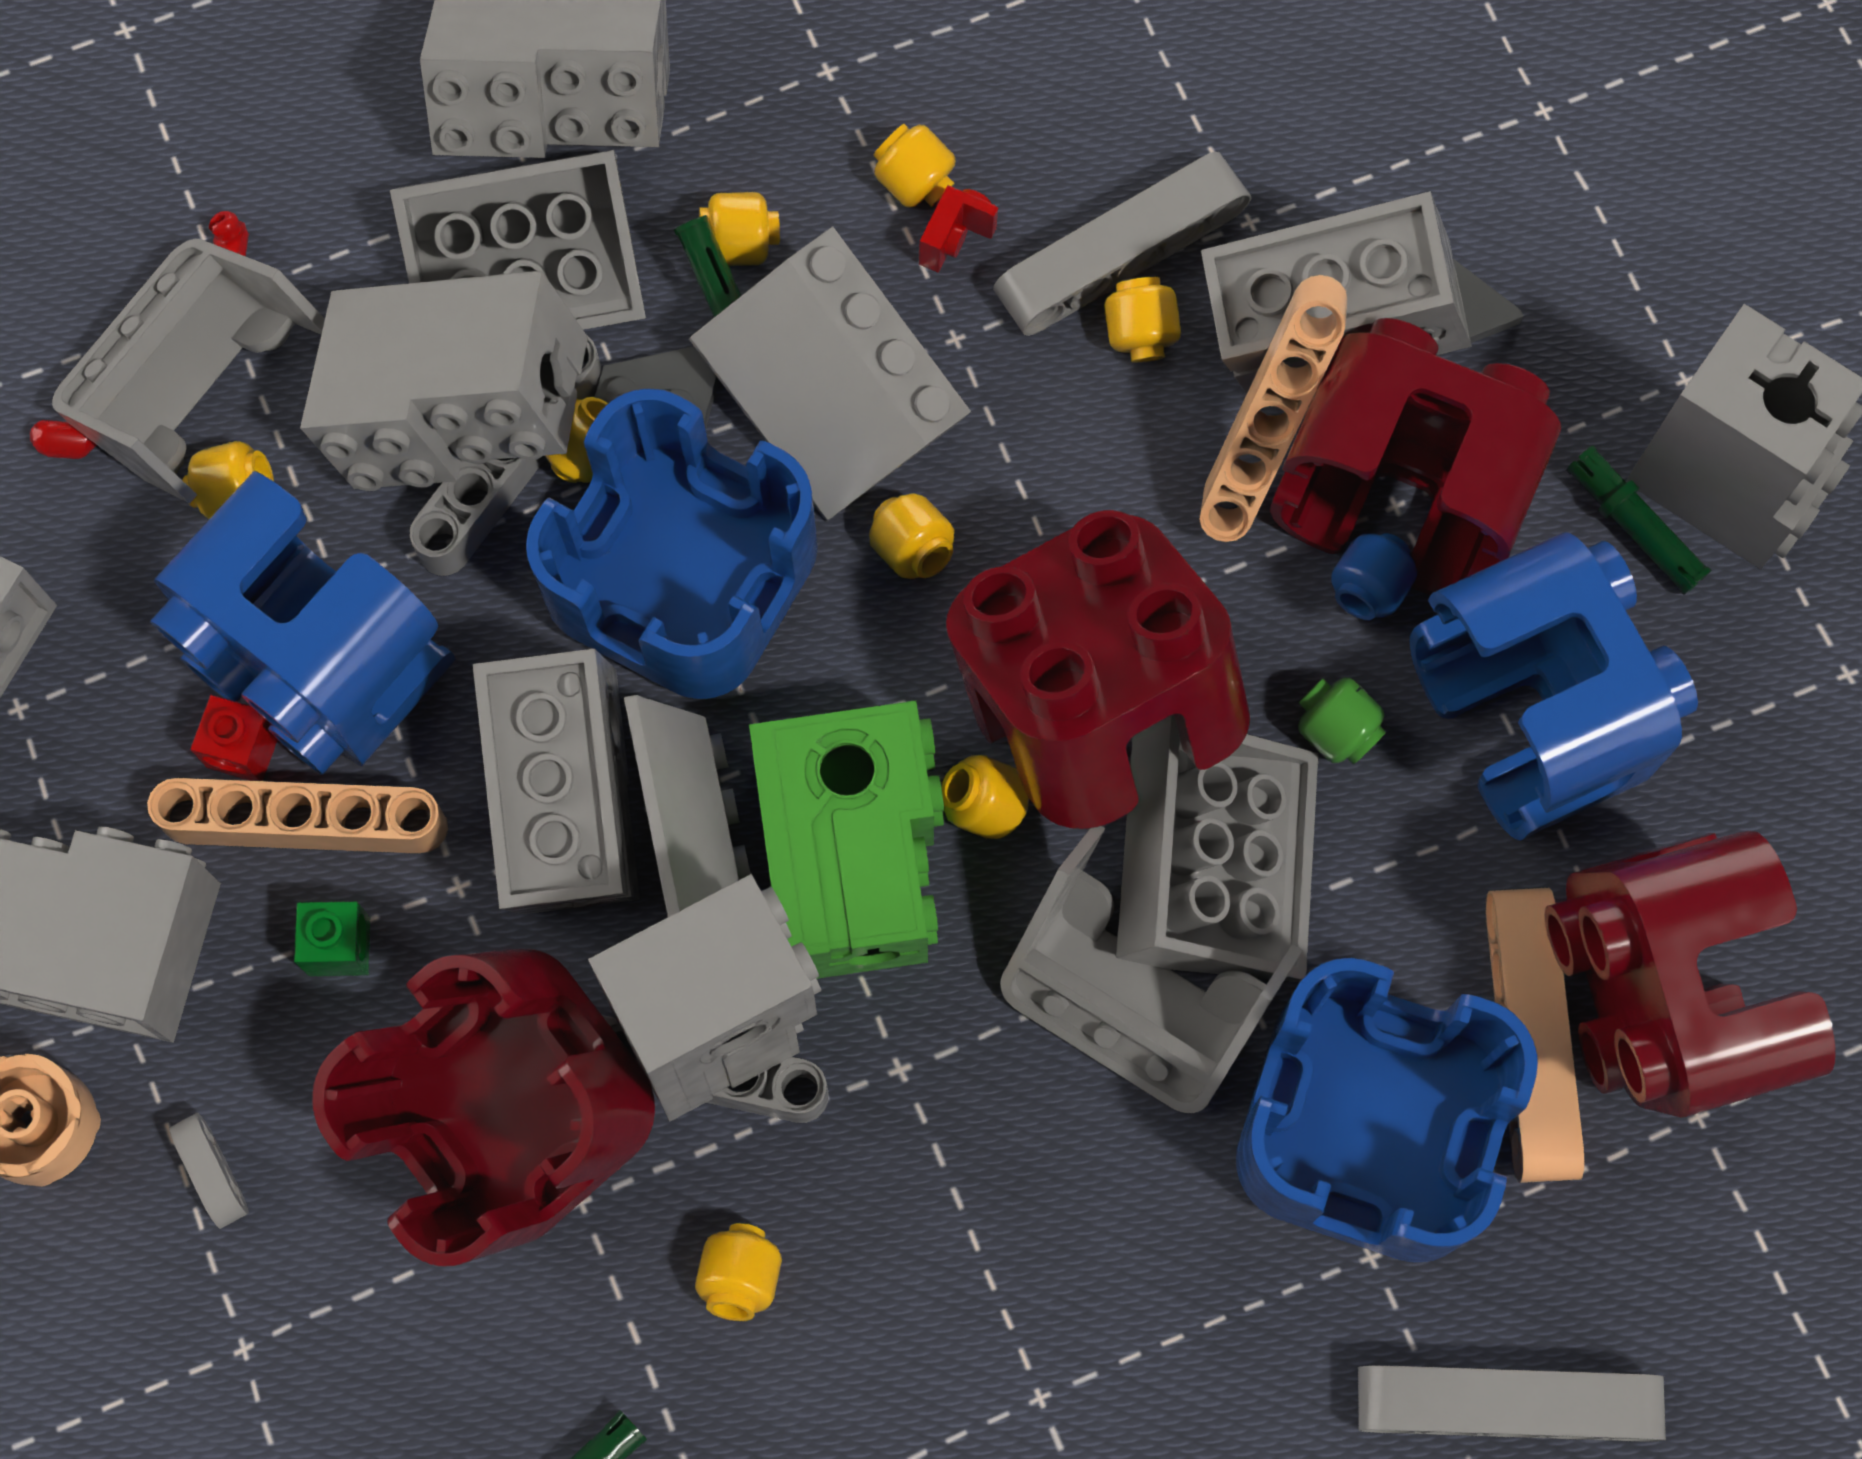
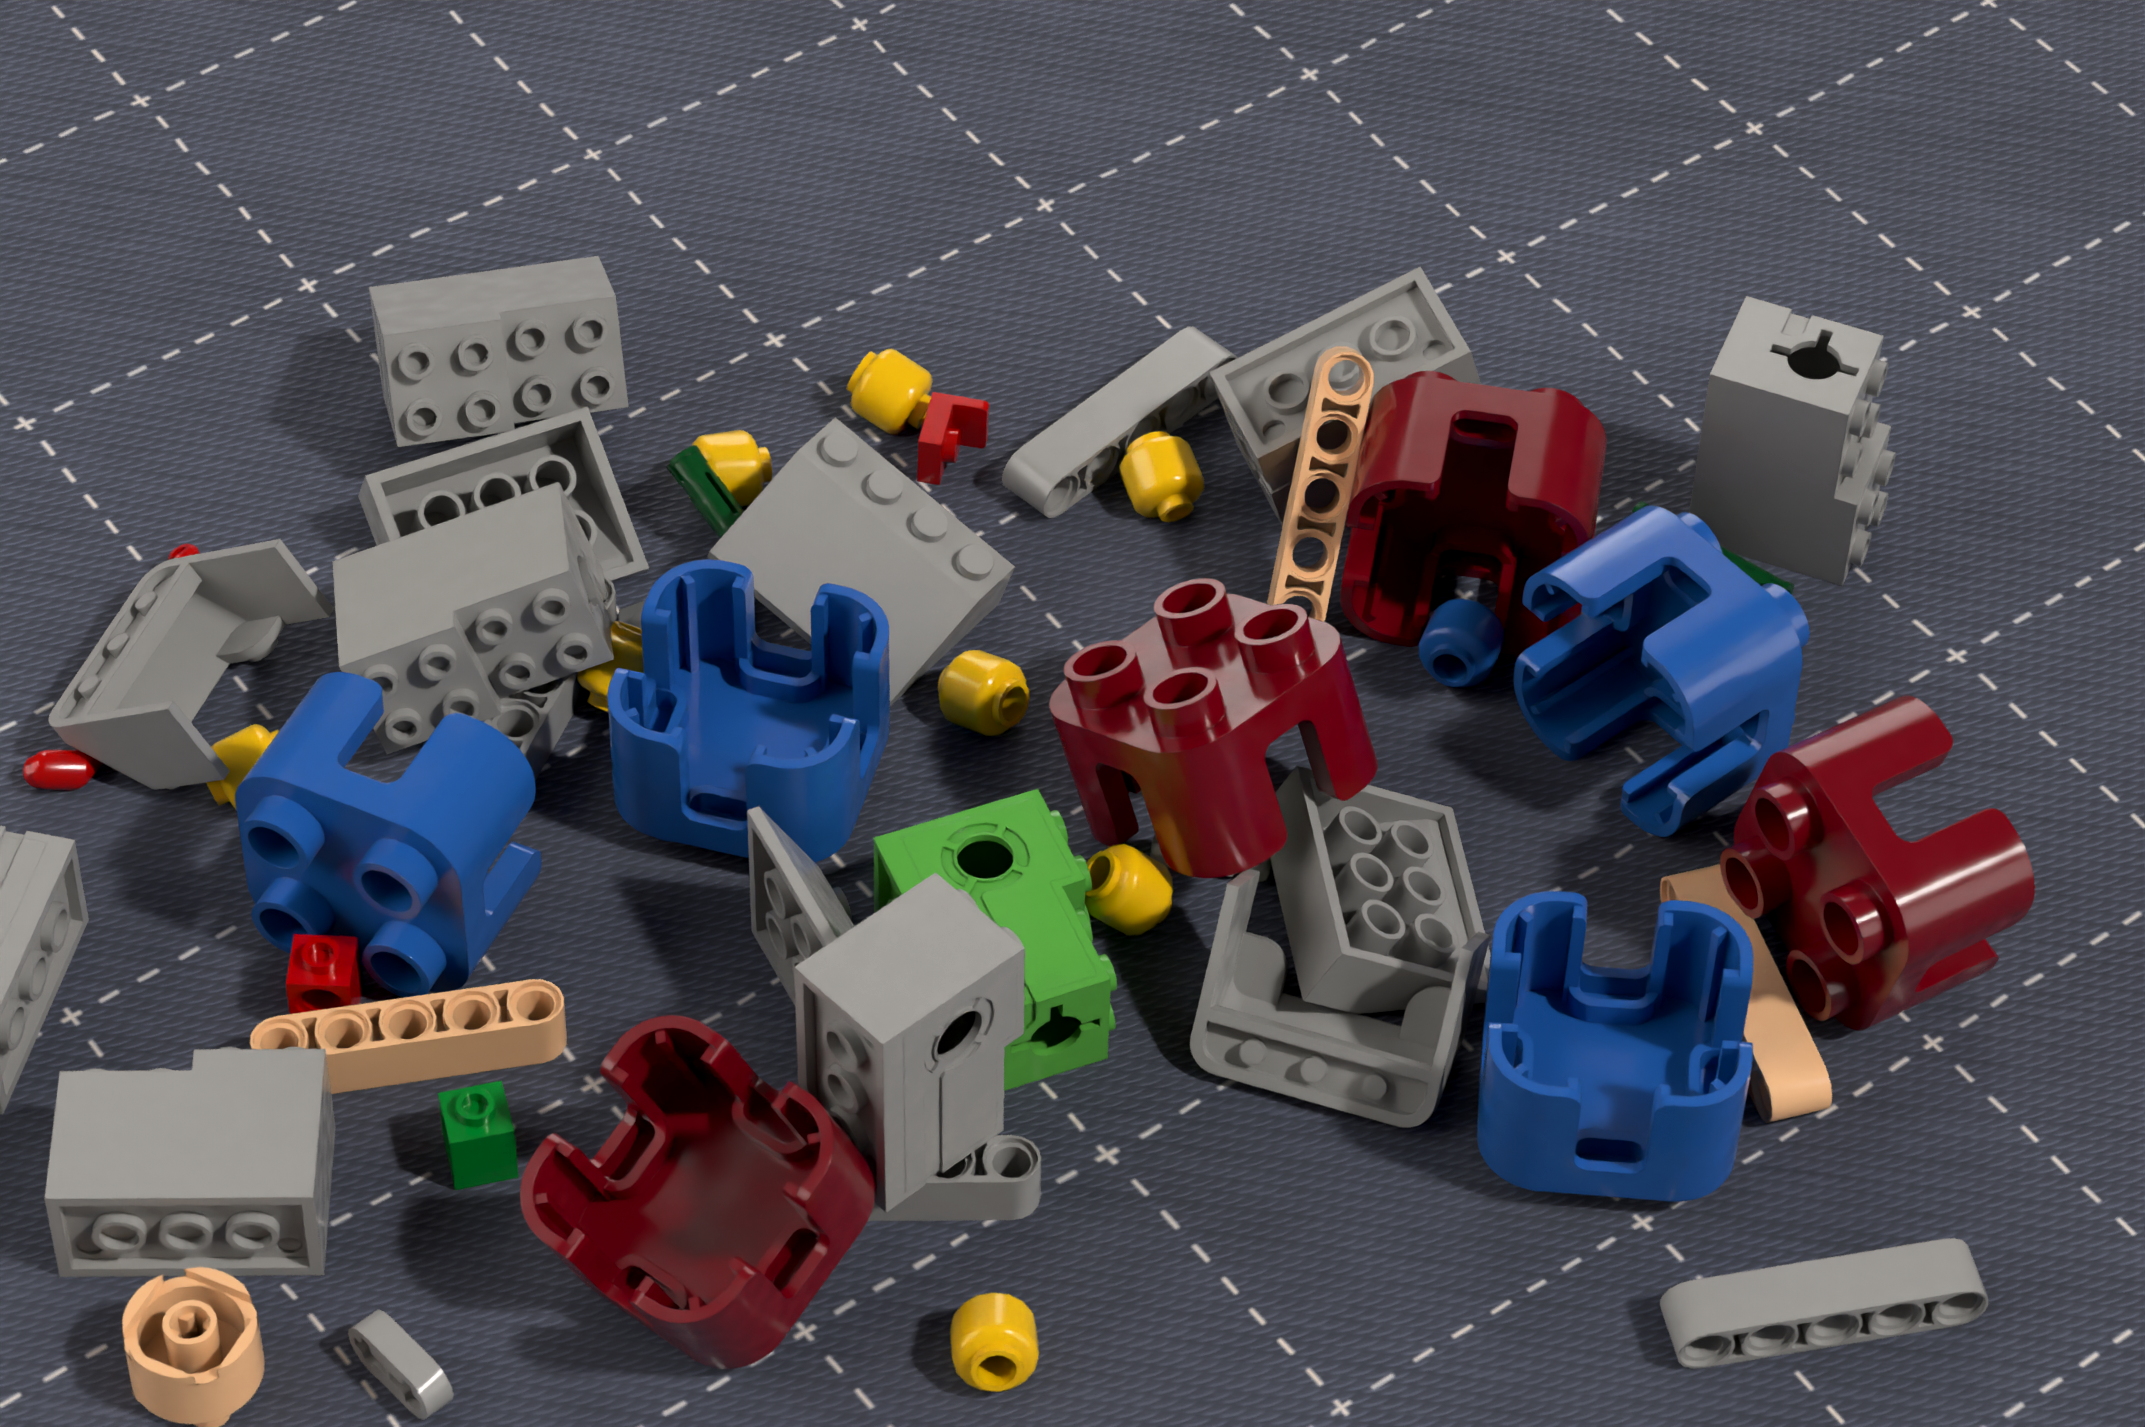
camera: 15 degrees left, 25 degrees down
(556, 781) = (688, 914): light grey piece -> none
(1341, 720) = (1466, 766): bright green head -> none

